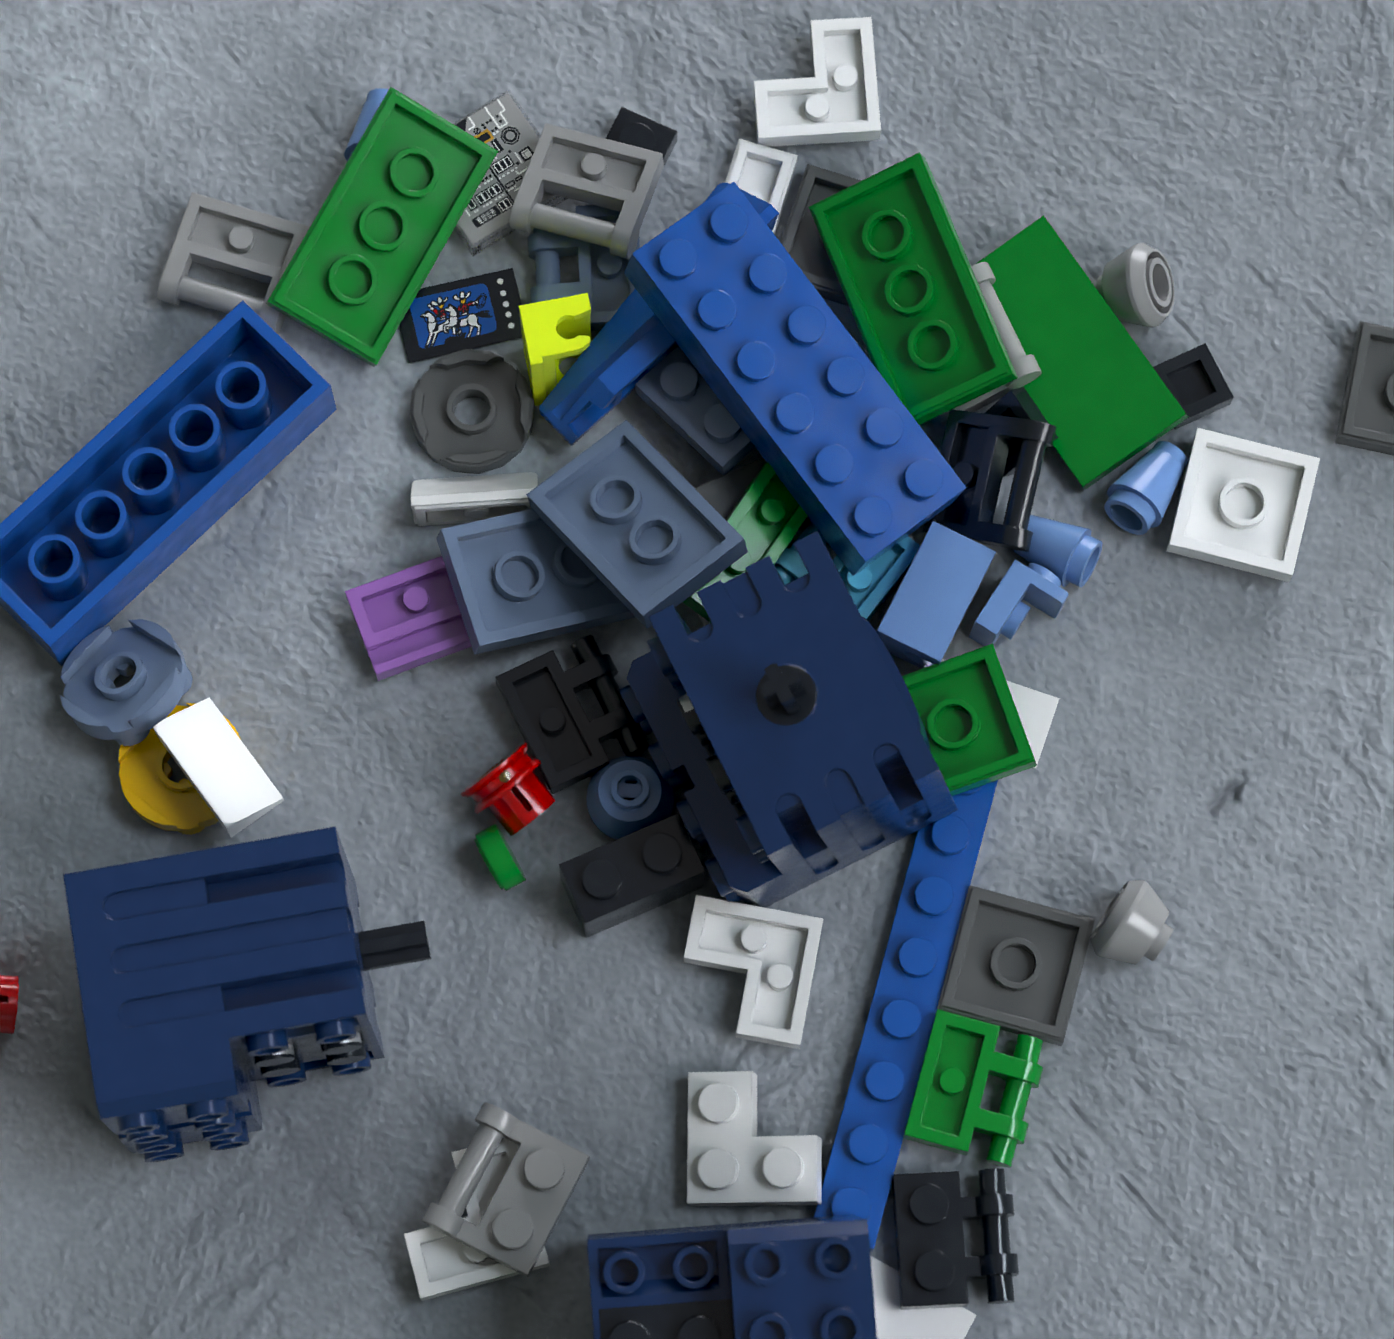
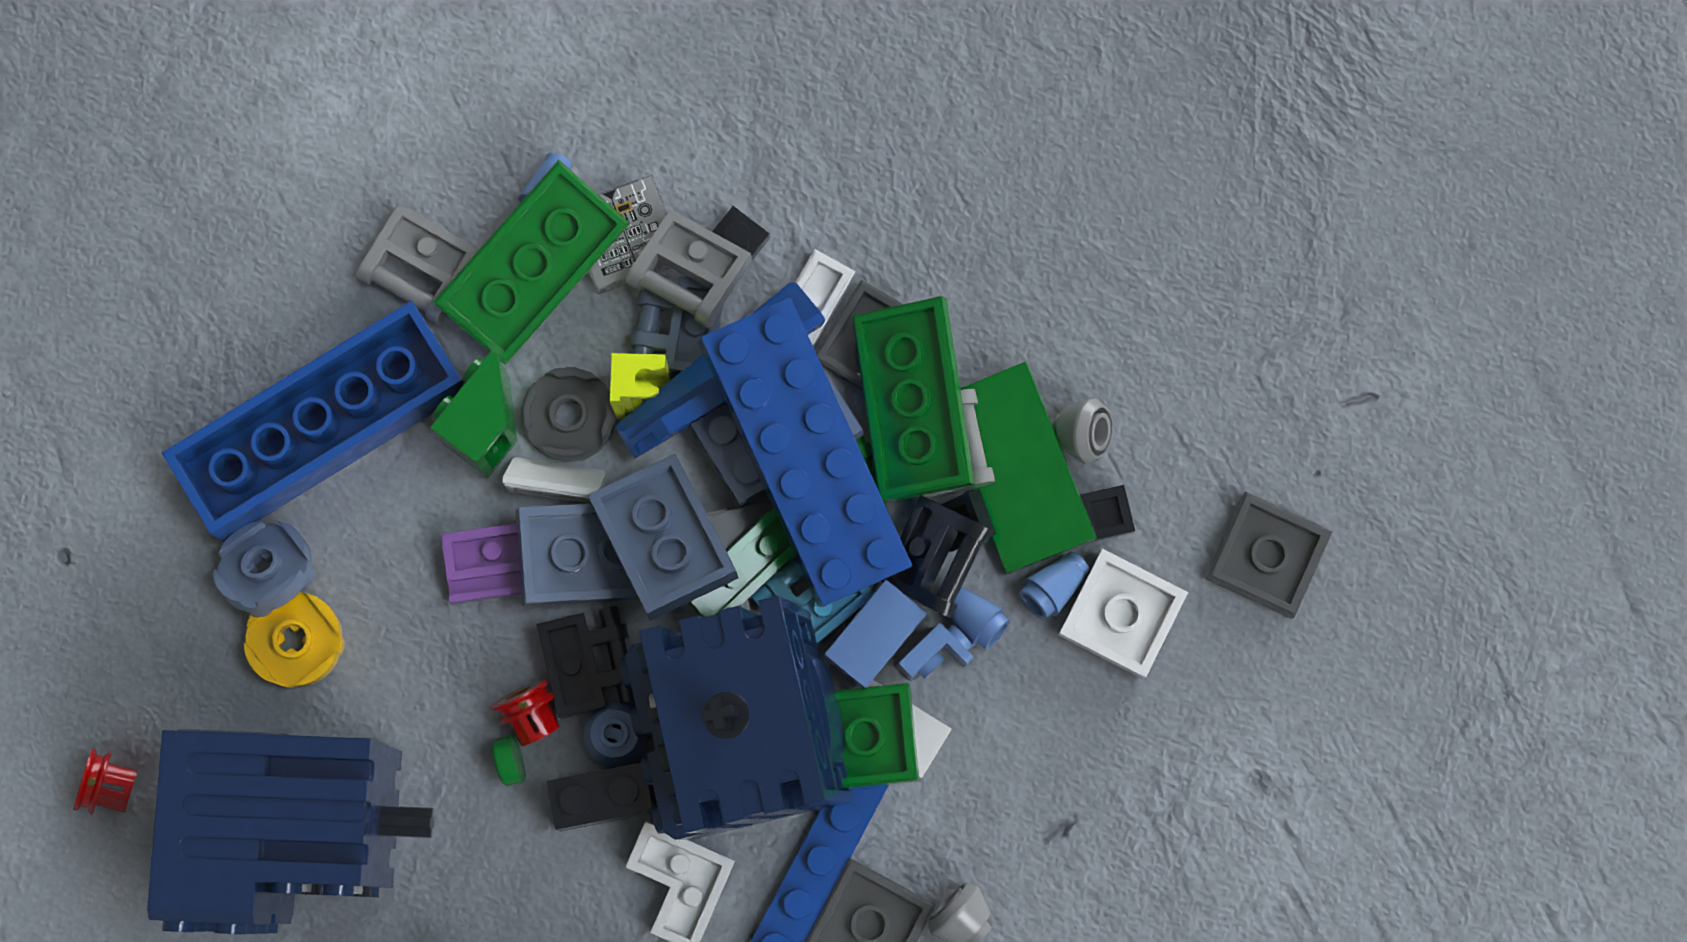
camera: 10 degrees right, 5 degrees up
(218, 765) = (316, 648): white slope -> none
(361, 437) = (480, 417): none -> green slope
(462, 316) = (578, 338): black sticker -> none
(834, 103) = (887, 239): white plate -> none

